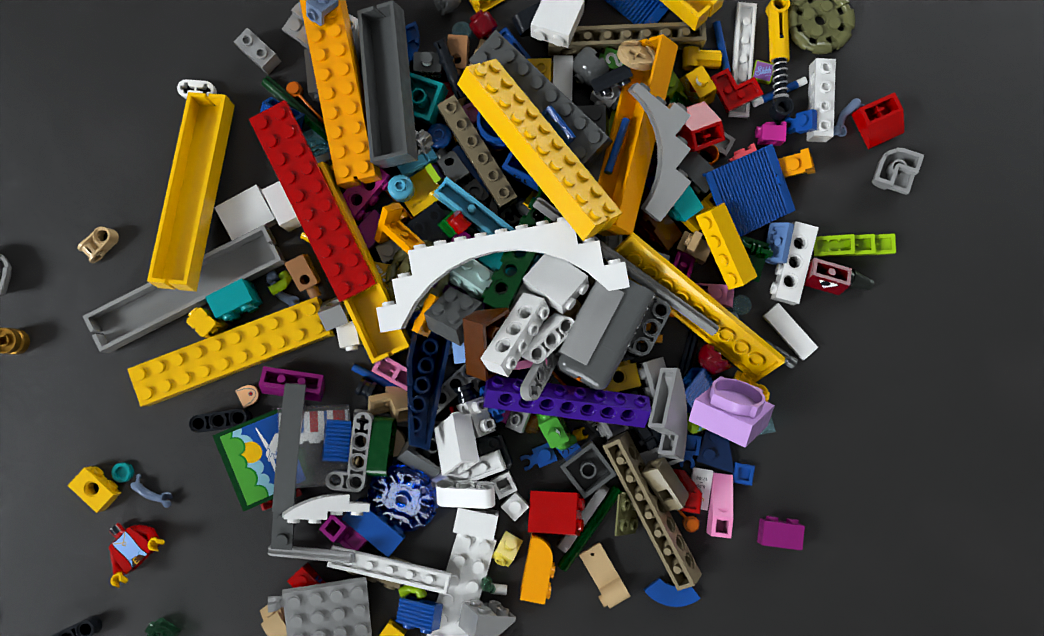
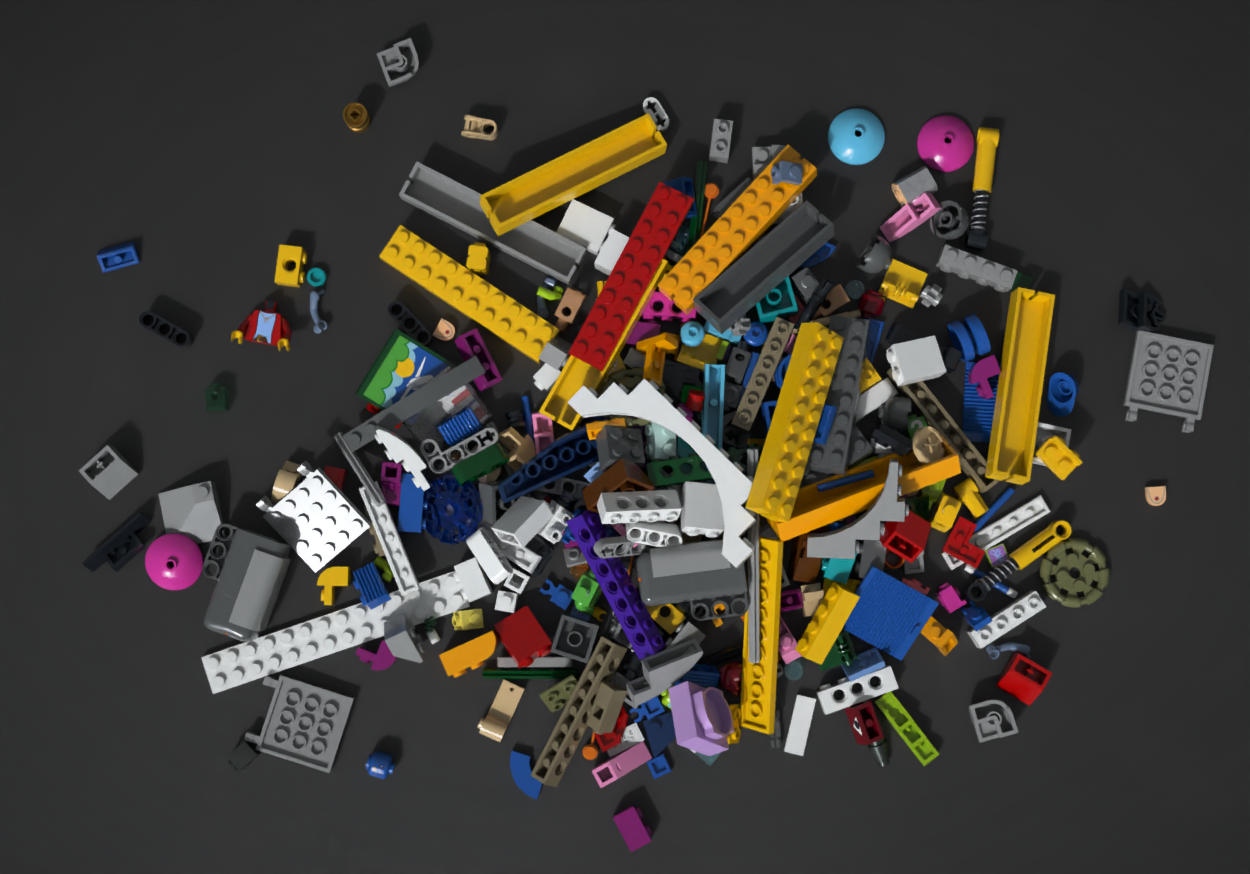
camera: 60 degrees right, 0 degrees up
(234, 300) = (511, 268): teal brick -> none

